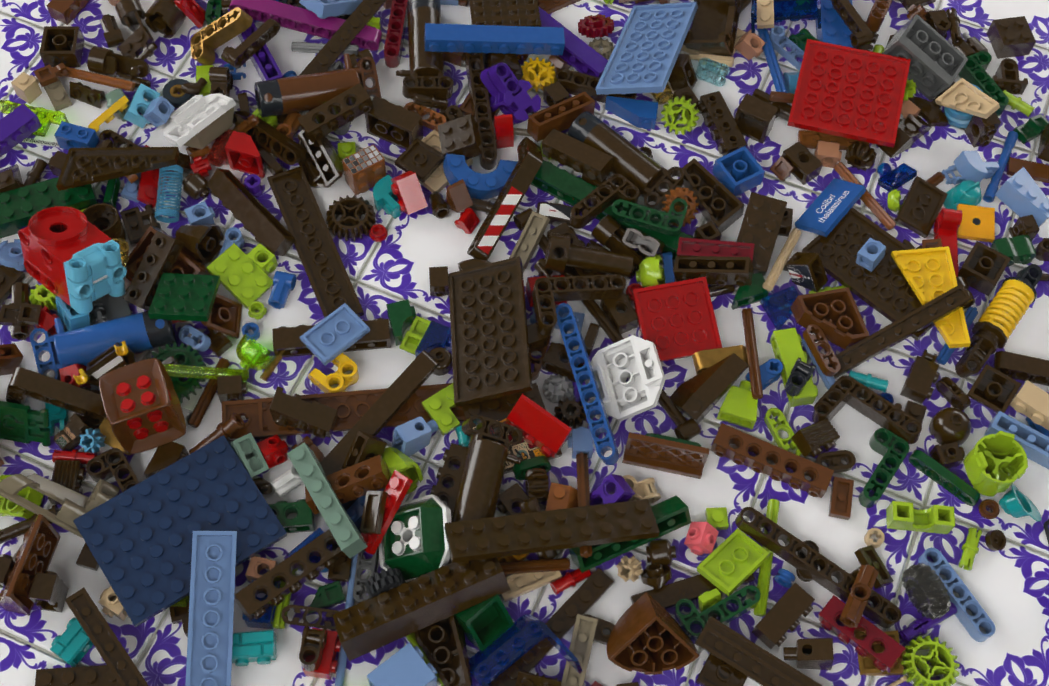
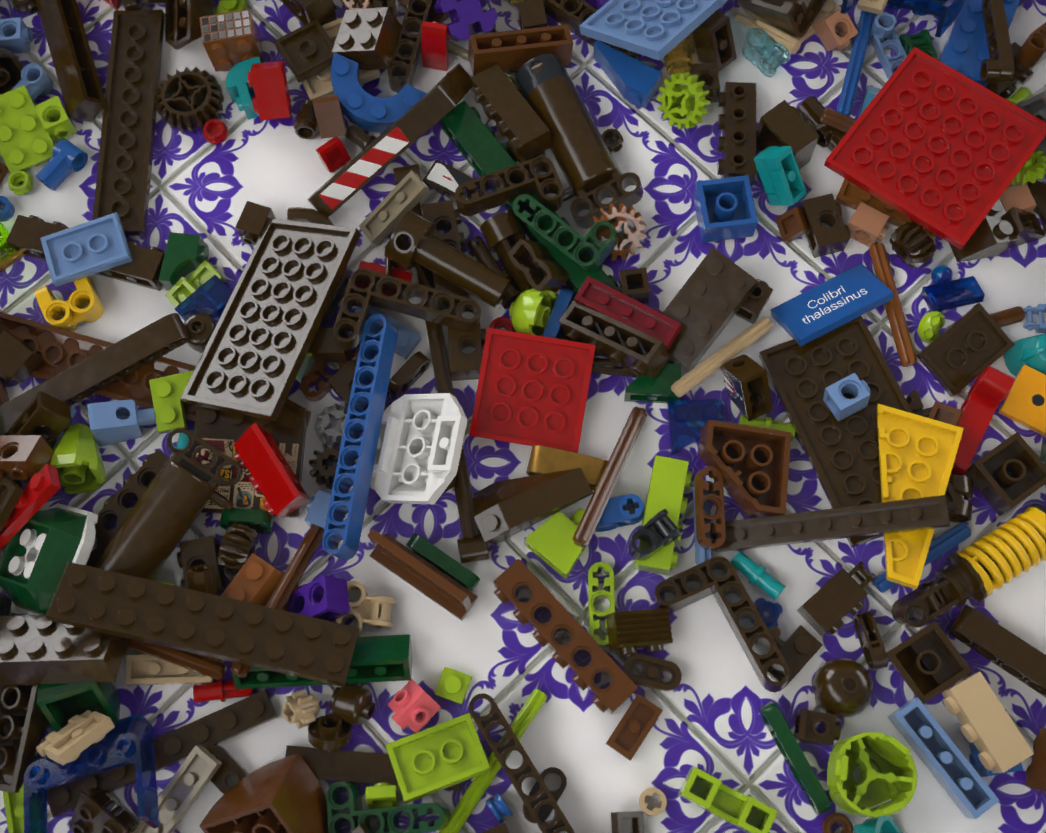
camera: 30 degrees right, 10 degrees up
(253, 183) = (91, 13): dark purple bush -> none
(498, 636) = (75, 737): none -> tan plate
(714, 199) = (671, 240): dark brown wedge -> none
(763, 140) = (780, 175): none -> teal brick
(883, 472) = (709, 712): dark green beam -> none

